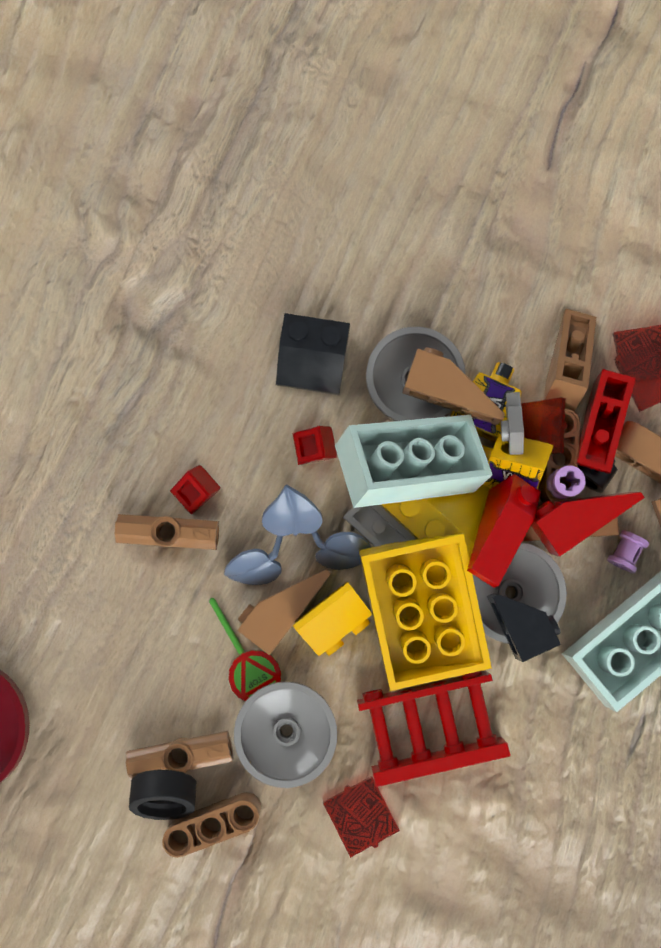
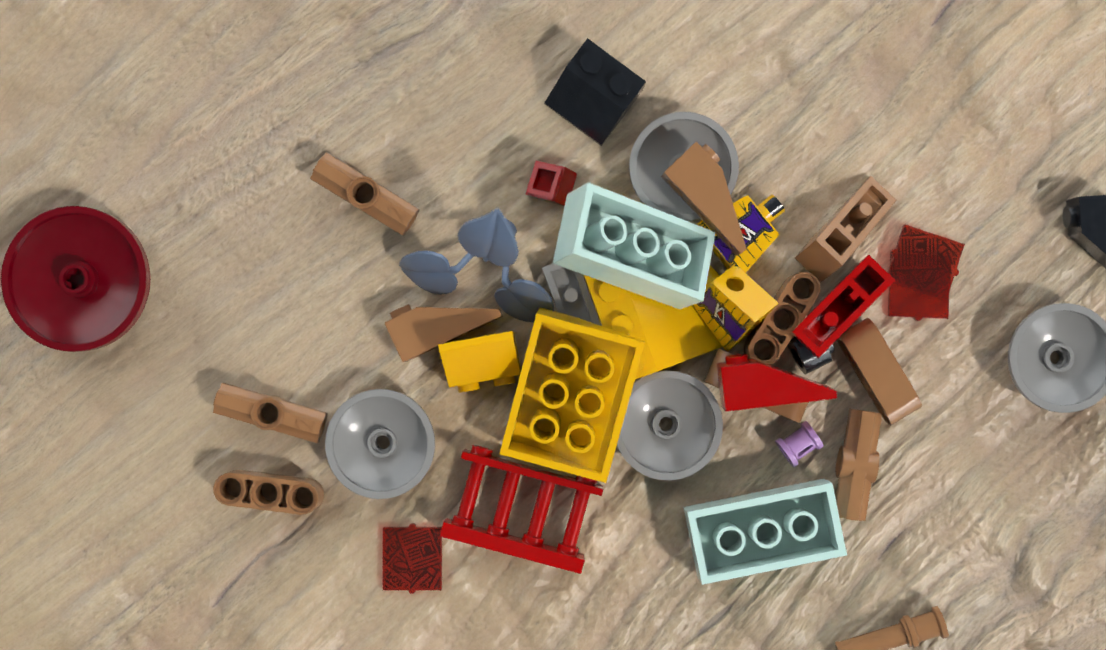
camera: 35 degrees right, 5 degrees up
(162, 794) = (236, 439): black tyre -> none
(195, 489) = (413, 166): red slope -> none
(251, 668) = (378, 366): piece -> none
(502, 528) = (686, 357): red slope -> none
(513, 428) = (747, 266): light grey plate -> none
(525, 627) = (658, 461): black slope -> none
(545, 422) = (782, 276): clear red piece -> none
(573, 475) = (782, 342): lavender bush -> none

